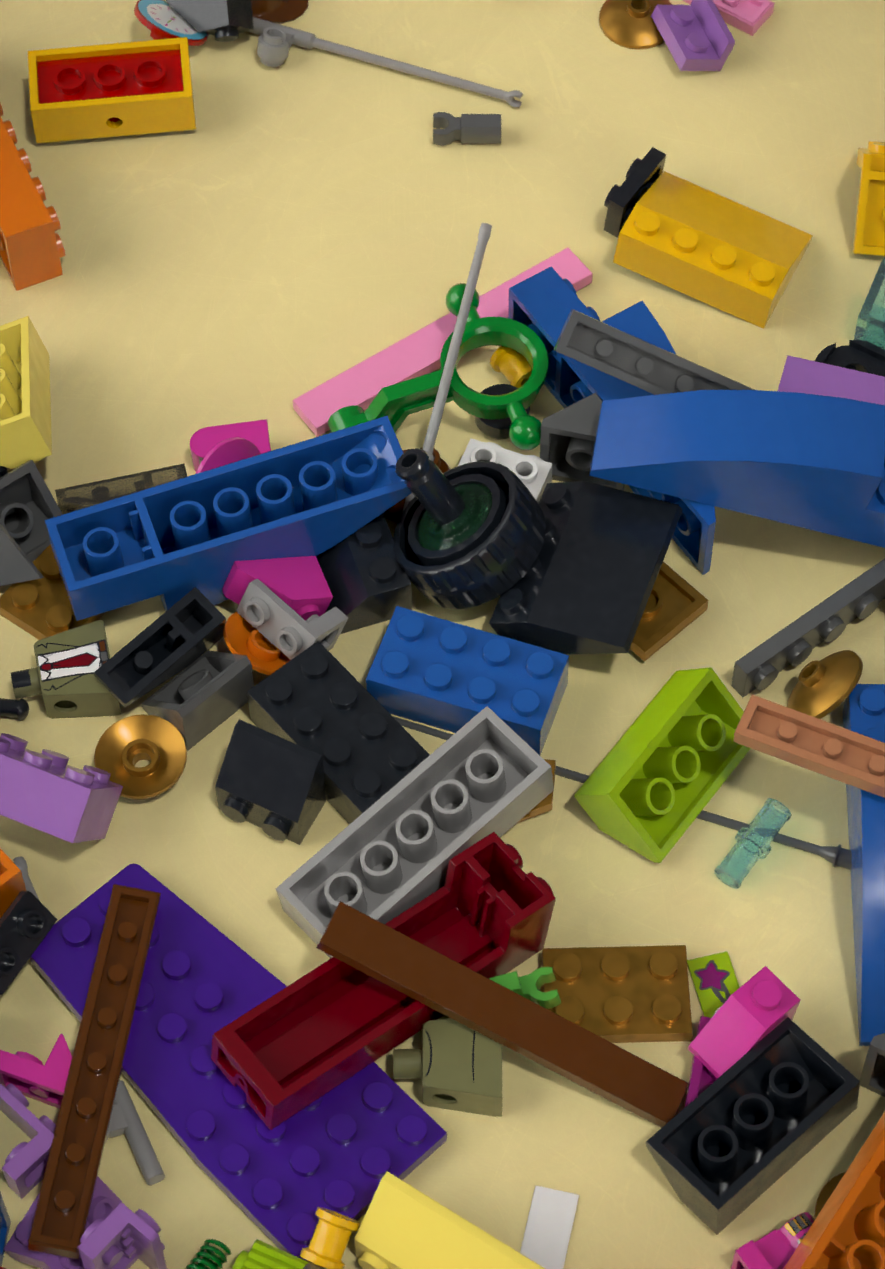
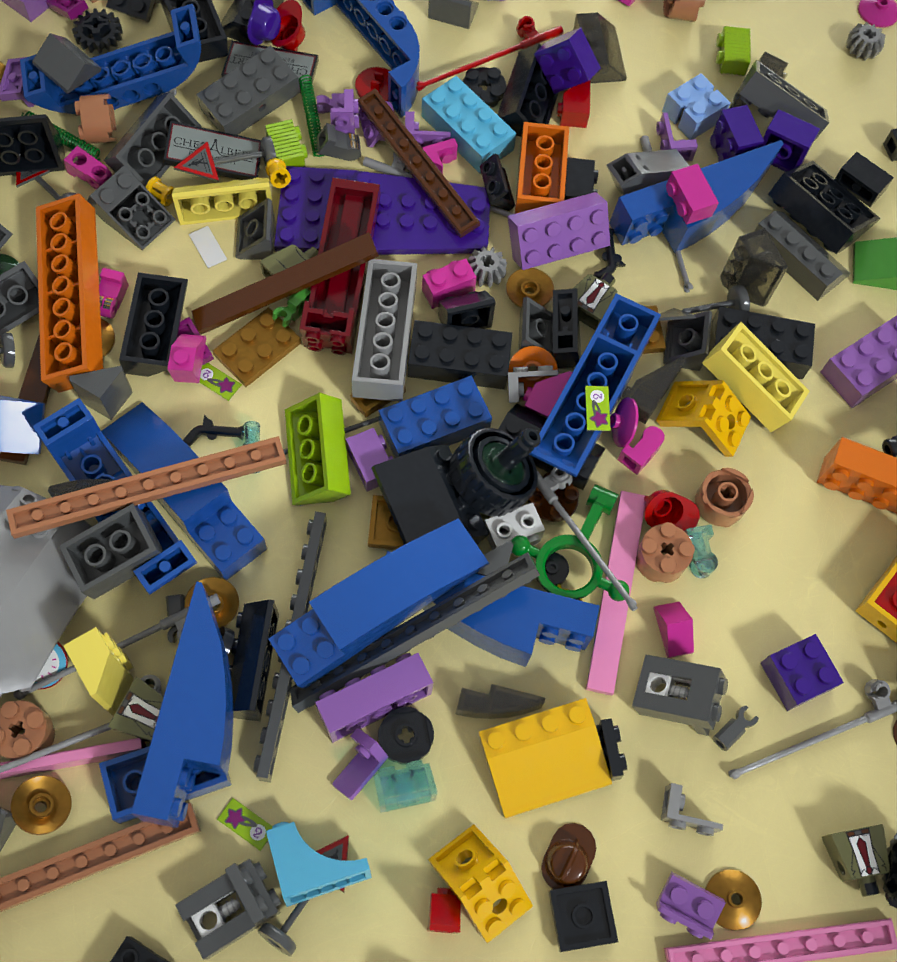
camera: 130 degrees right, 10 degrees up
(109, 405) = (711, 407): none -> yellow bracket
(178, 825) = (488, 266): none -> light grey gear
(180, 1217) = (338, 144): none -> dark grey leg
(207, 319) = (720, 484): none -> nougat brick
(246, 851) = (452, 280): none -> dark pink brick
(270, 469) = (597, 408): none -> lime sticker
(289, 363) = (670, 507): none -> red piece
(300, 302) = (703, 560): none -> clear light blue leg
(336, 113) = (801, 672): none -> dark purple brick
(348, 319) = (665, 539): none -> nougat brick
(420, 258) = (675, 629): none -> dark pink slope
(461, 1165) = (256, 232): none -> dark grey slope
(487, 146) = (703, 698): none -> dark grey brick
(603, 701) = (366, 451): none -> medium lavender brick
(622, 101) = (673, 803): none -> light grey bracket
(715, 329) = (498, 703): none -> clear smoke slope
(776, 159) = (568, 856): none -> reddish brown piece
(792, 914) = (213, 431): none -> black piece
(814, 102) = (583, 916): none -> black plate
(826, 683) = (277, 538): pearl gold dish -> none

